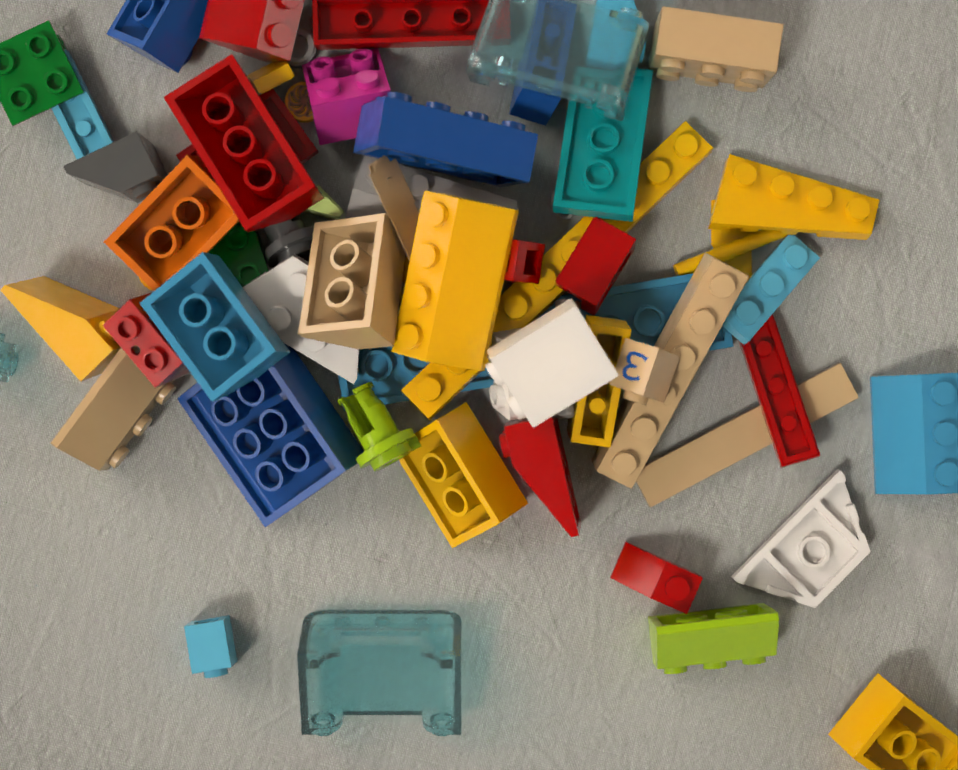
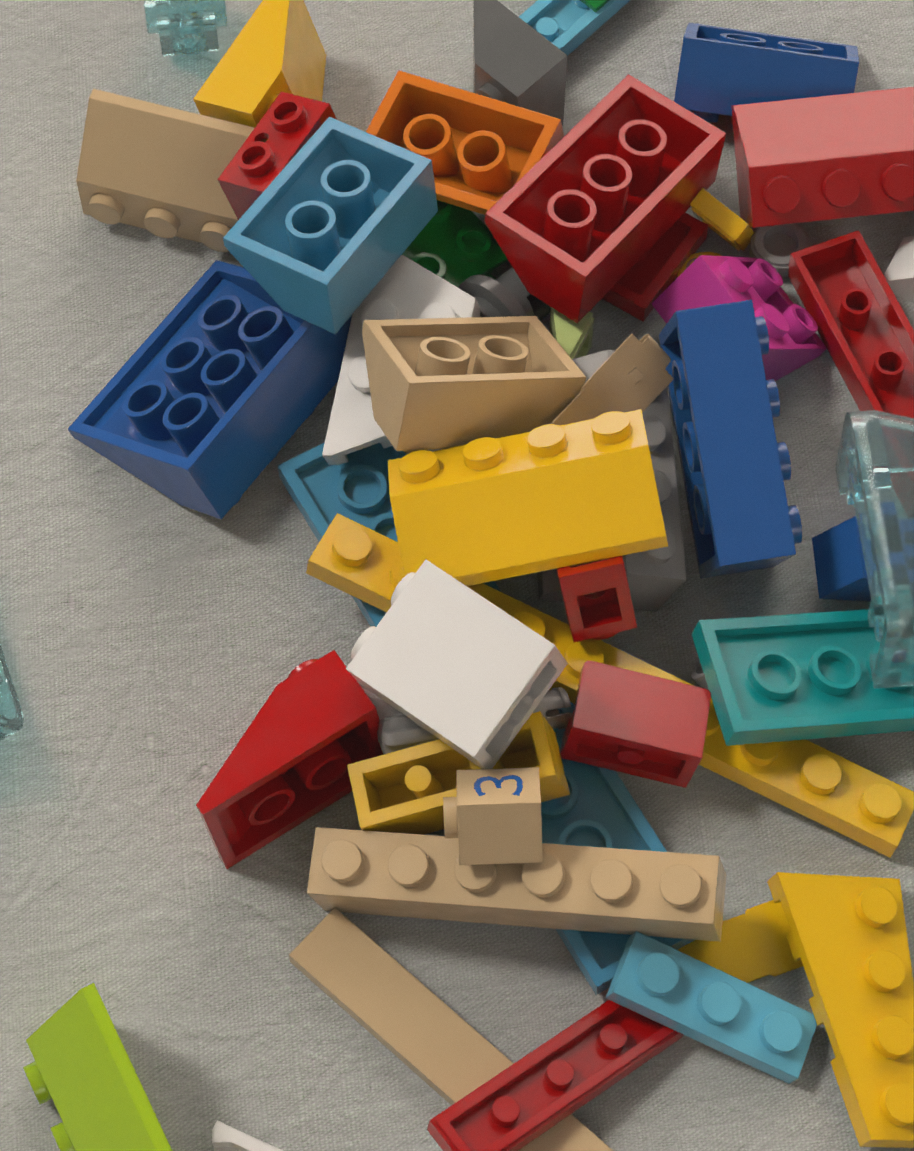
camera: 65 degrees right, 25 degrees down
(376, 429) = (249, 515): lime piece -> none
(462, 476) = (237, 651): yellow slope -> none
(656, 577) = (176, 1007): red slope -> none
(730, 250) = (766, 955): yellow bar -> none

